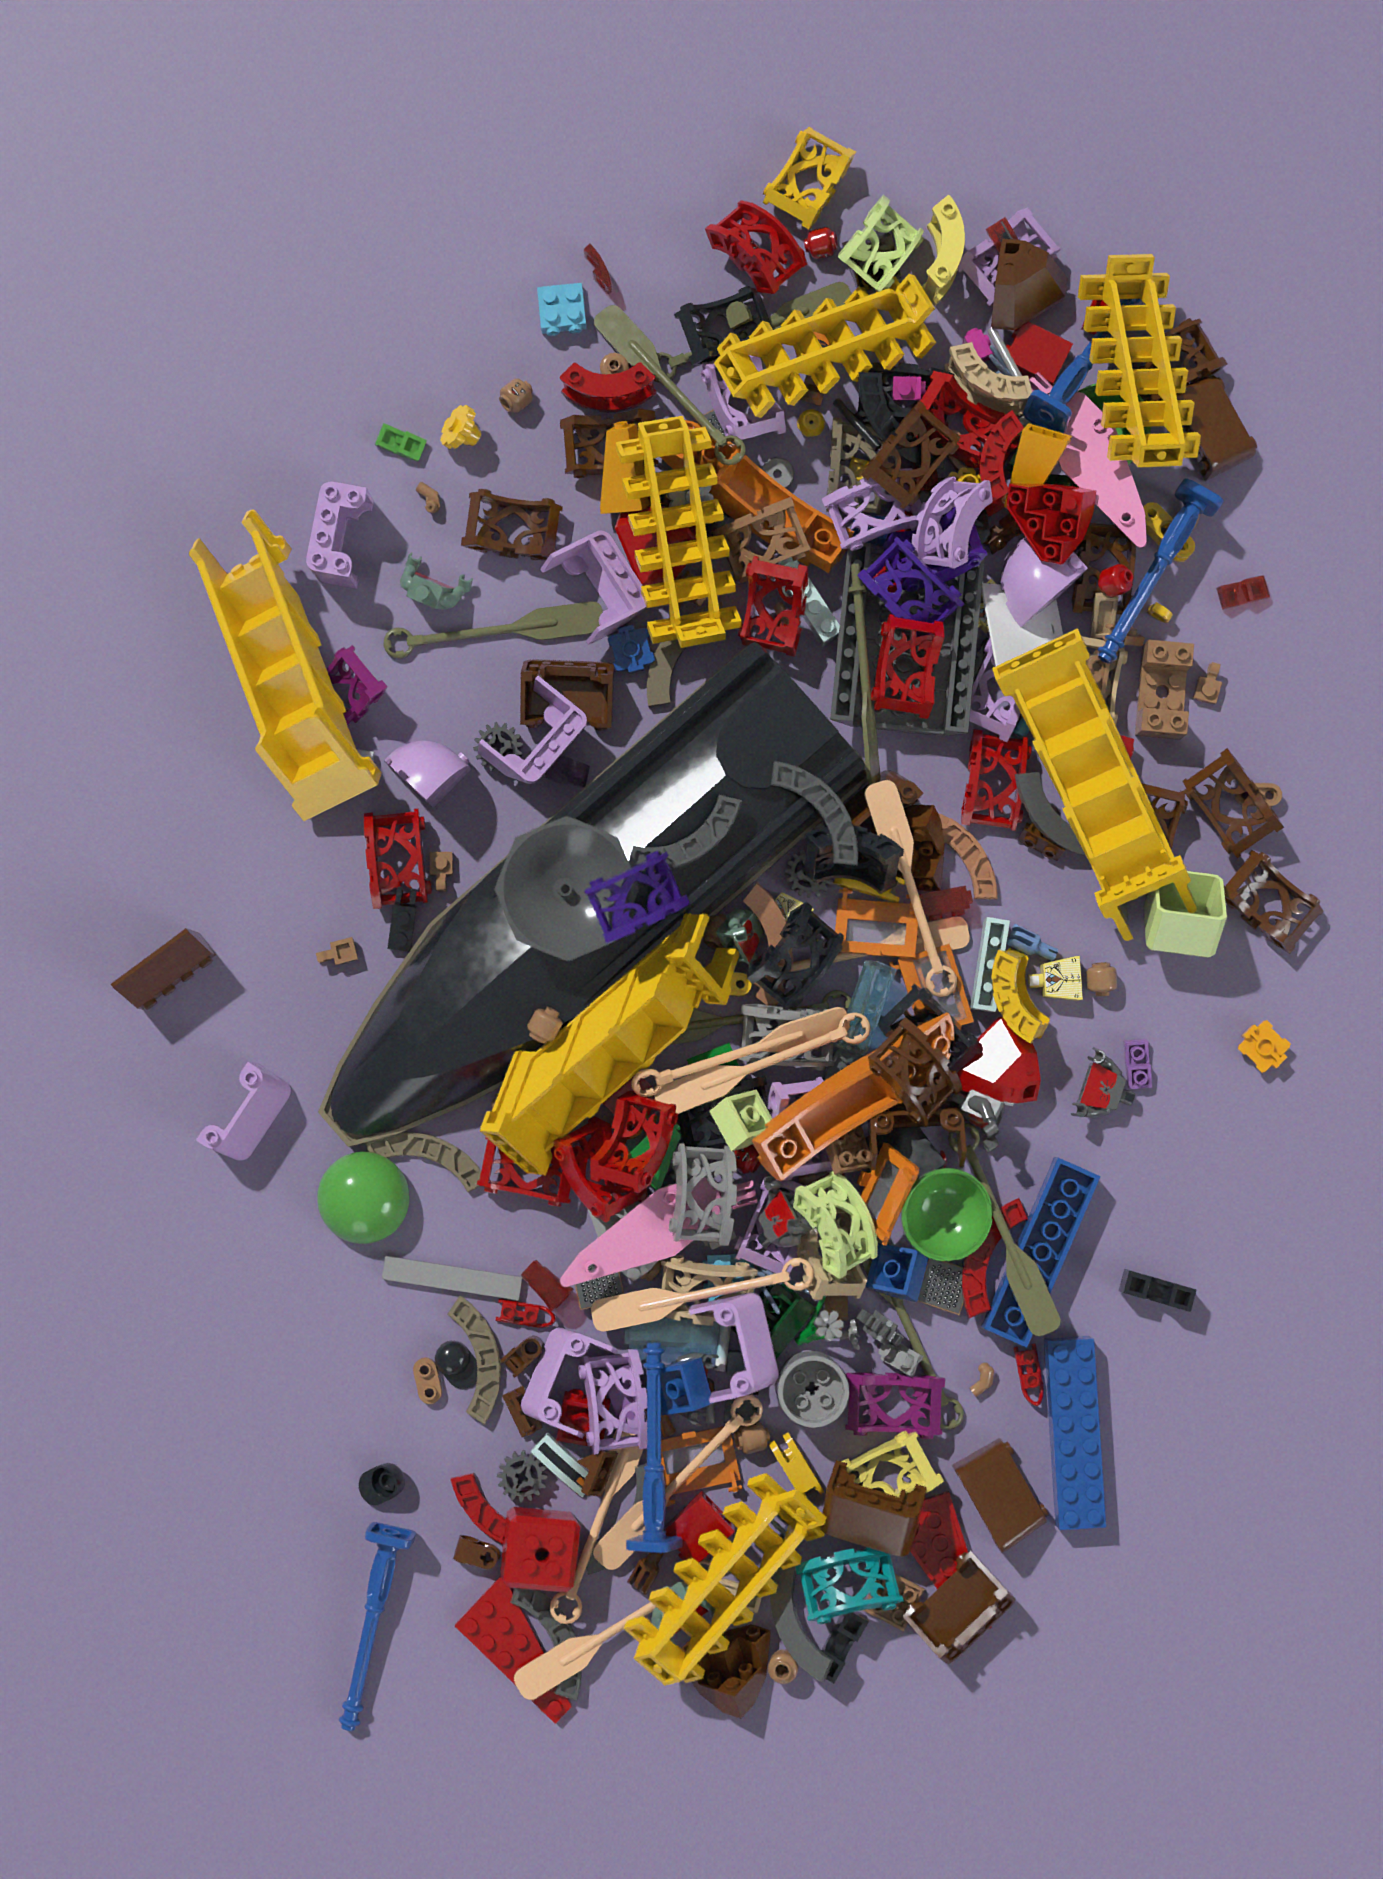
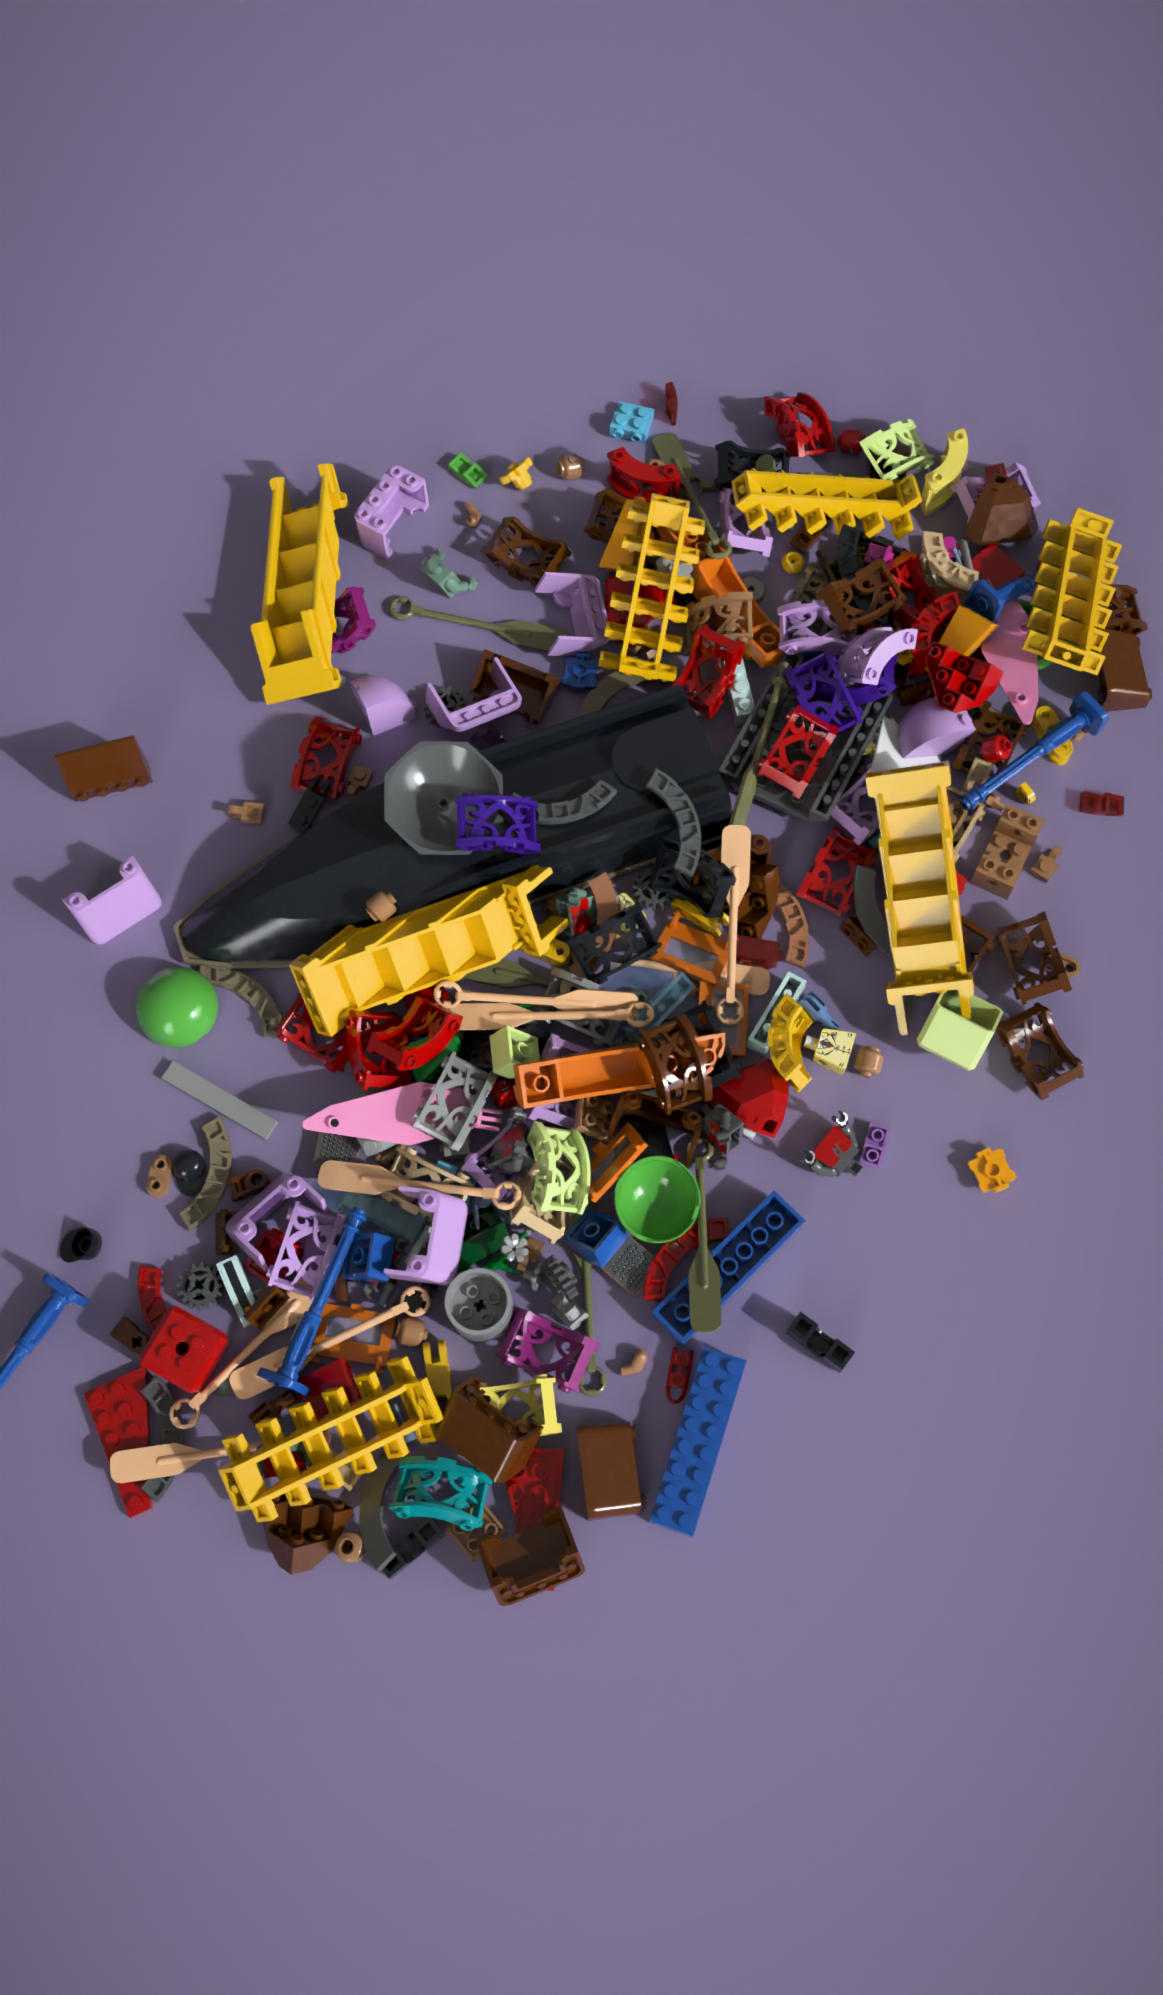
camera: 25 degrees right, 15 degrees down
(529, 1316) = (268, 1155): red piece -> none
(546, 1285) = (294, 1135): clear red plant -> none
(808, 210) = (853, 411): yellow fence -> none

